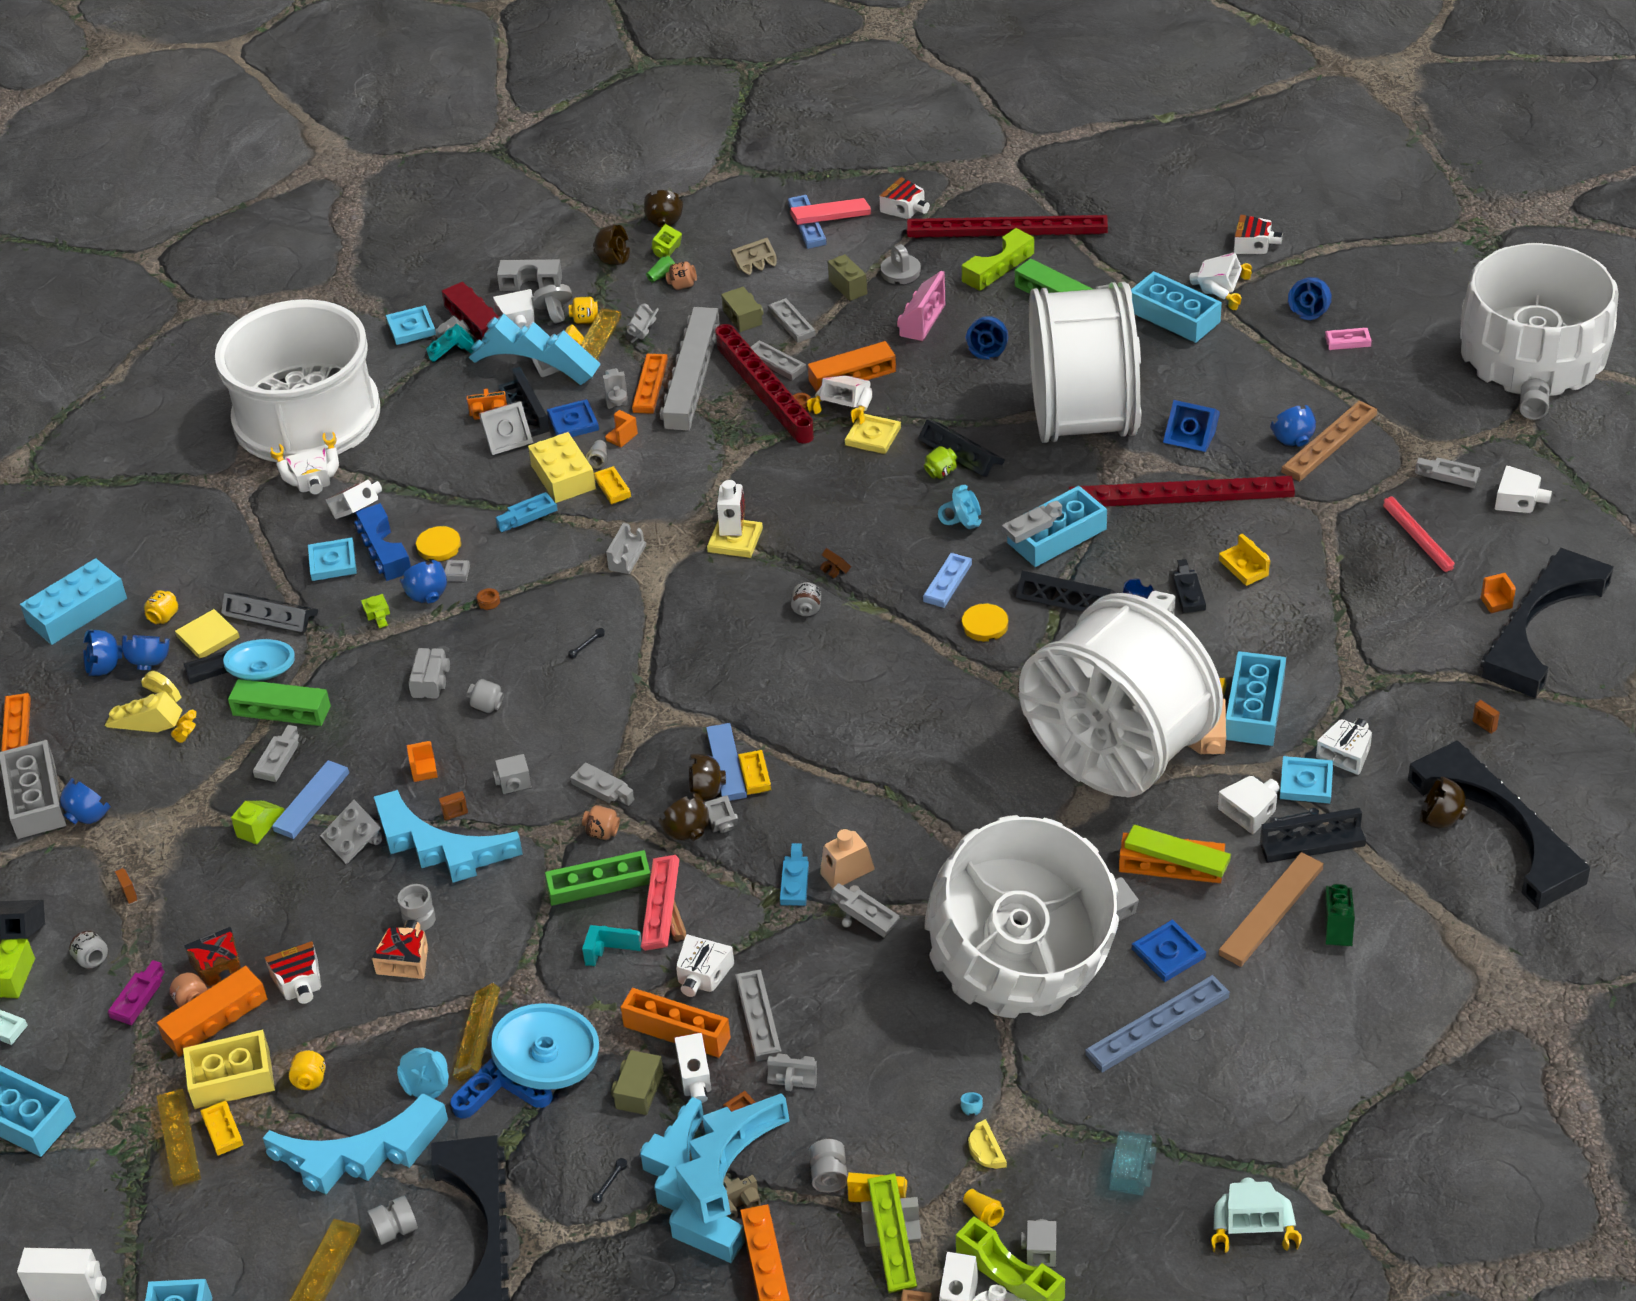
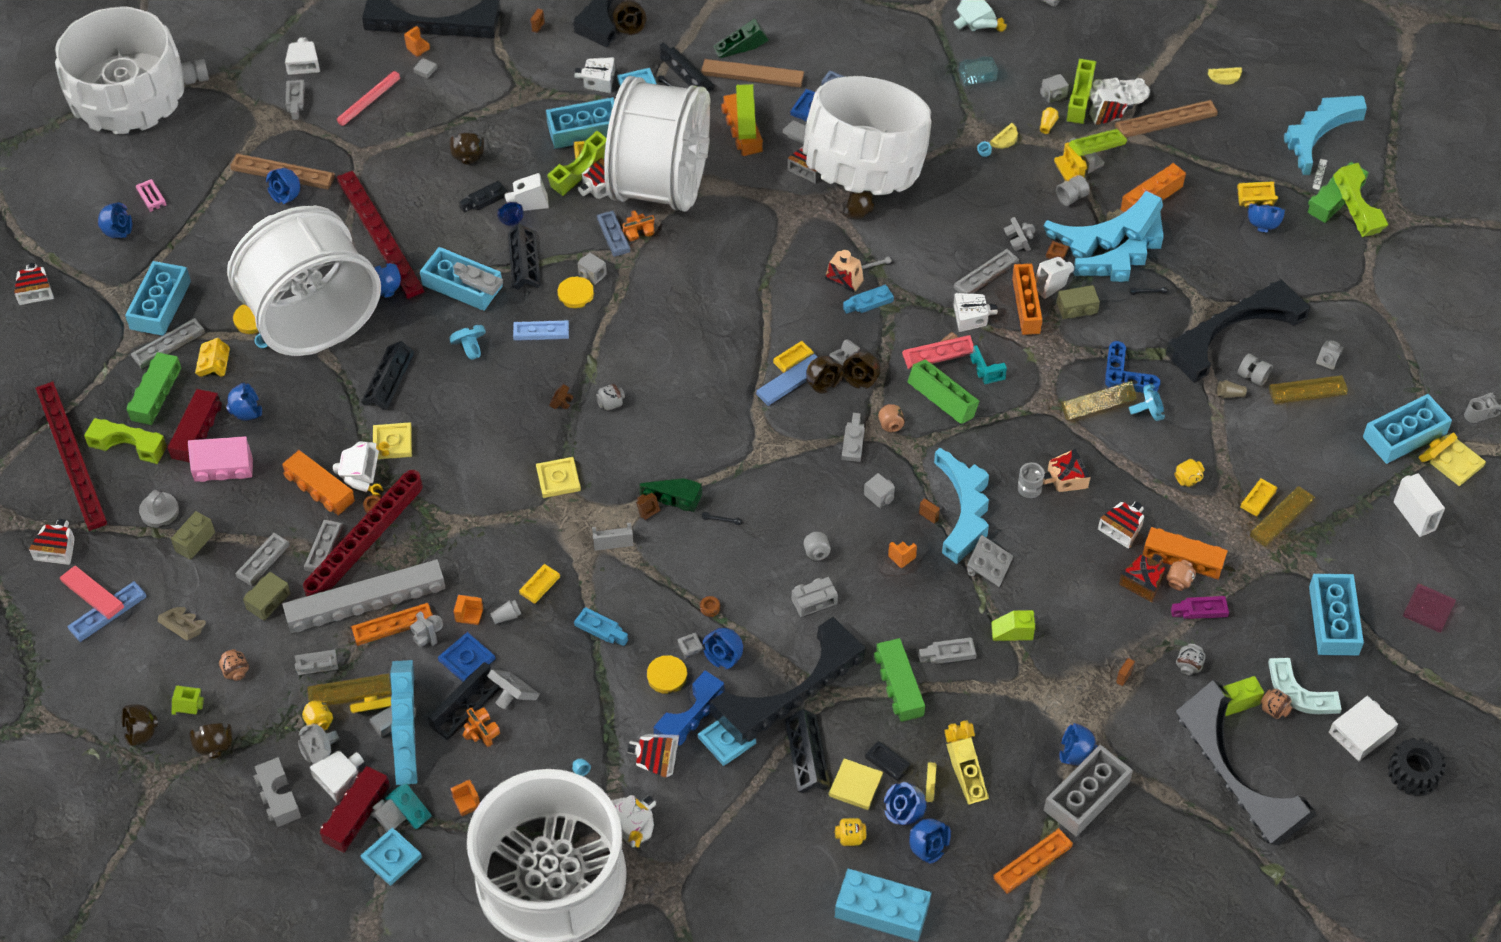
camera: 120 degrees left, 10 degrees up
(228, 1069) = (1222, 510): light yellow brick -> none
(259, 659) = (867, 702): medium azure dish -> none
(310, 799) = (972, 608): medium blue tile -> none
(348, 663) = (750, 715): none -> black arch
(362, 1154) = (1202, 398): medium azure arch -> none
(377, 609) = (763, 677): lime plate -> none
(388, 1181) = (1230, 390): none -> dark tan cone
(392, 456) = (581, 767): none -> medium azure hinge
(424, 380) = (465, 797): none -> orange panel
(544, 1046) = (1089, 354): medium azure dish -> none
(562, 467) = (538, 625): light yellow brick -> none
(640, 611) = (675, 492): none -> dark green slope
(643, 585) = (647, 505): none -> reddish brown tile
(660, 269) = (226, 687): bright green cone -> none
(731, 497) = (542, 474): white torso -> none
(865, 909) = (877, 248): light grey hinge -> none
(940, 462) = (415, 377): lime head -> none
(984, 301) = (194, 423): none -> dark red brick
(1008, 640) = (592, 268): none -> light grey brick
(1090, 464) = (389, 279): none -> blue cylinder
(1220, 277) = (104, 284): white torso -> none
(1246, 561) = (444, 171): yellow bracket -> none
(1269, 583) = (467, 147): none -> dark brown cylinder
(1449, 595) = (425, 68): none -> light grey tile

